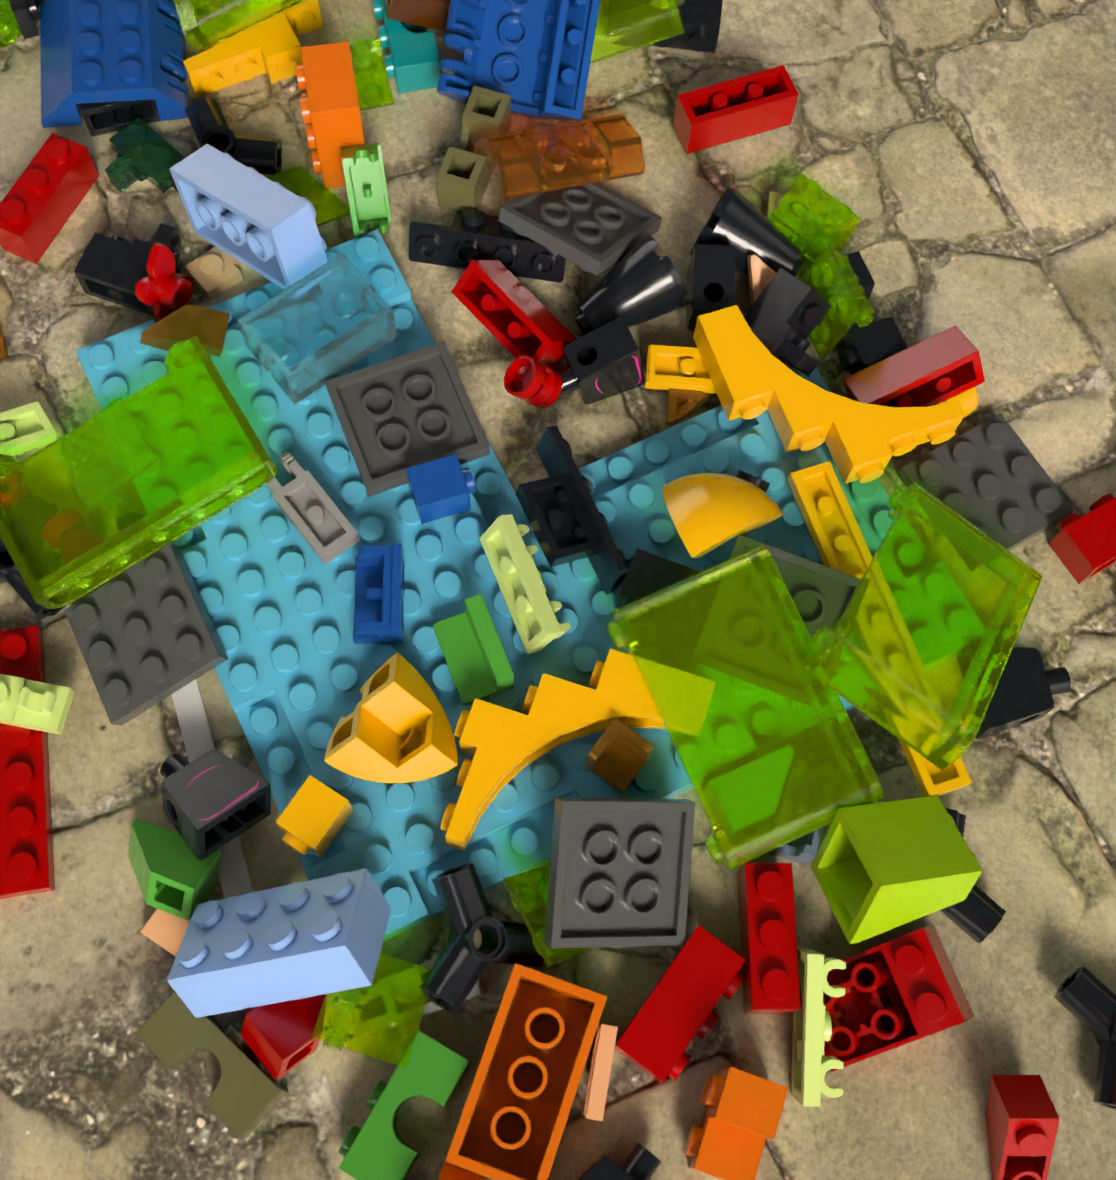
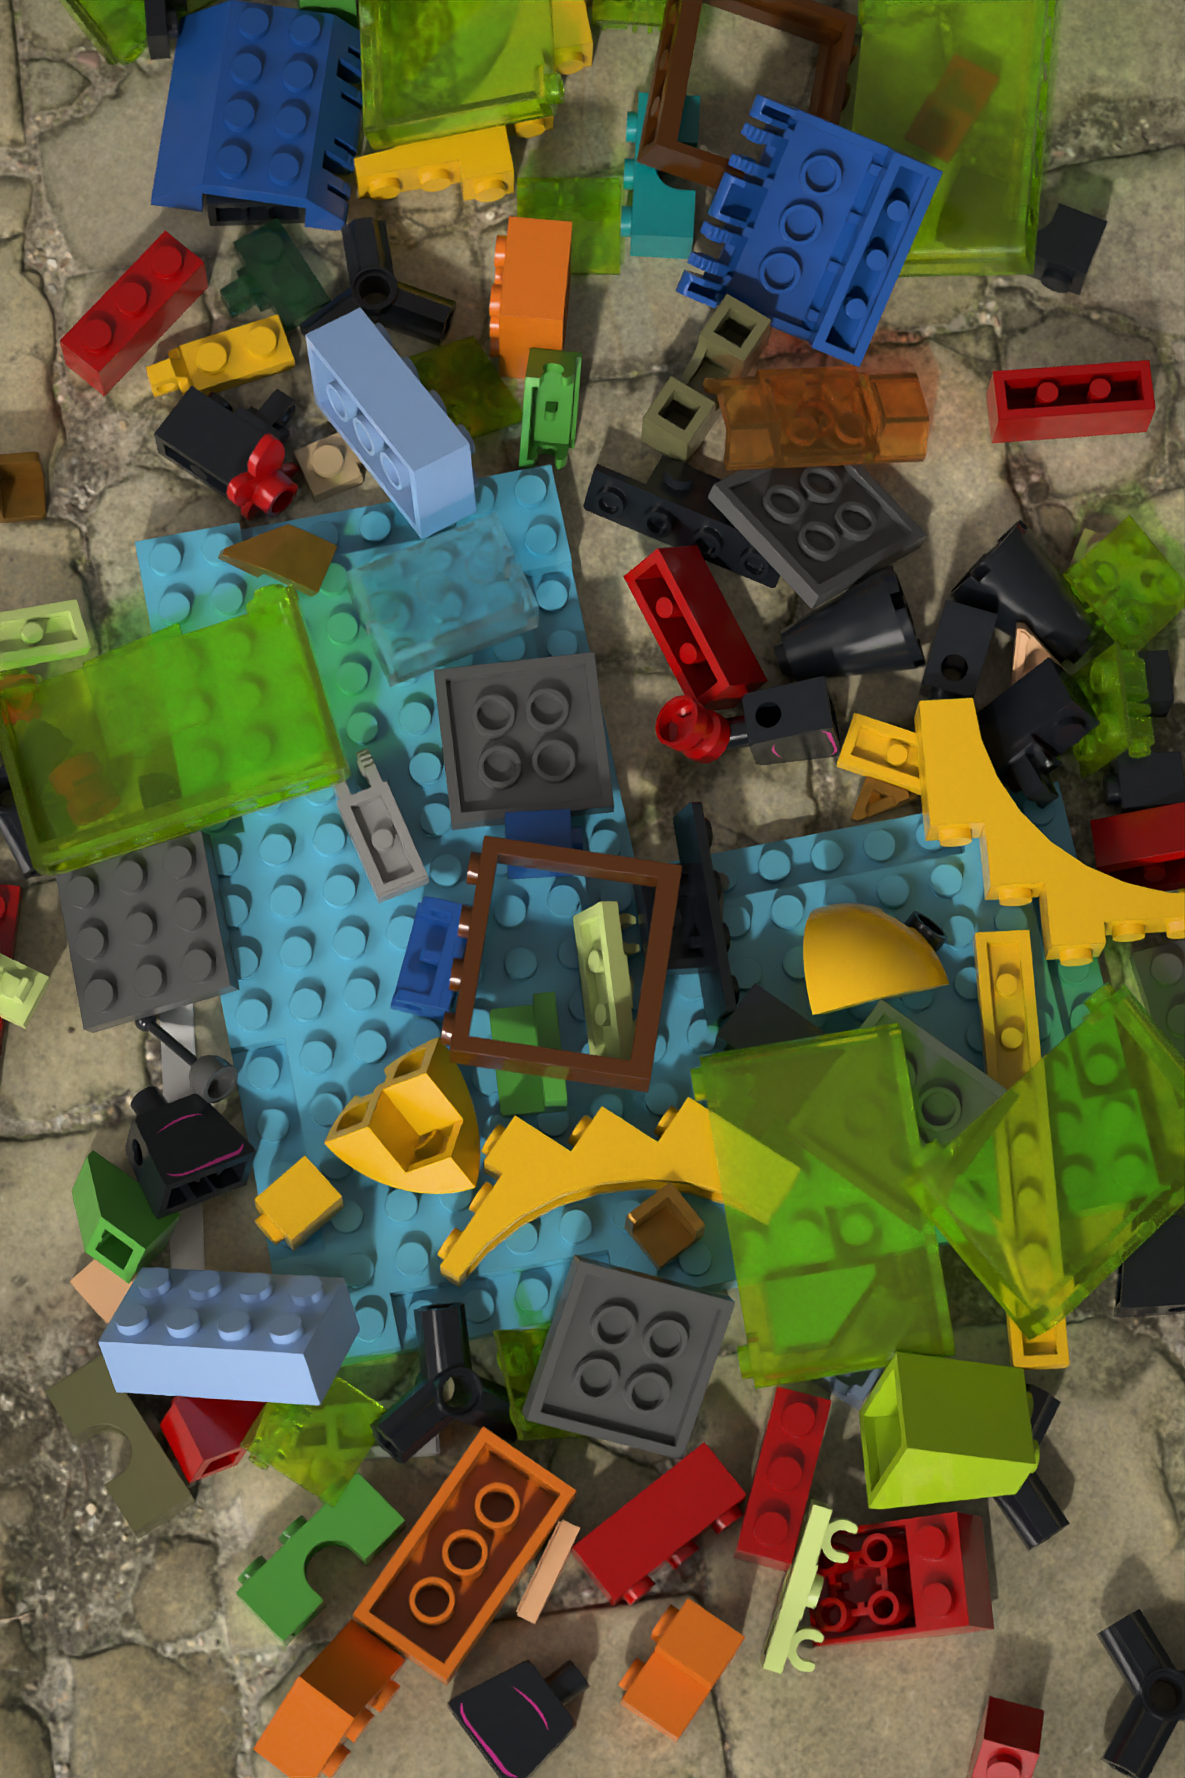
camera: 15 degrees right, 5 degrees up
(120, 217) = (224, 359): none -> yellow hinge
(218, 733) = (209, 1075): none -> dark grey hinge
(496, 646) = (549, 1062): none -> reddish brown window

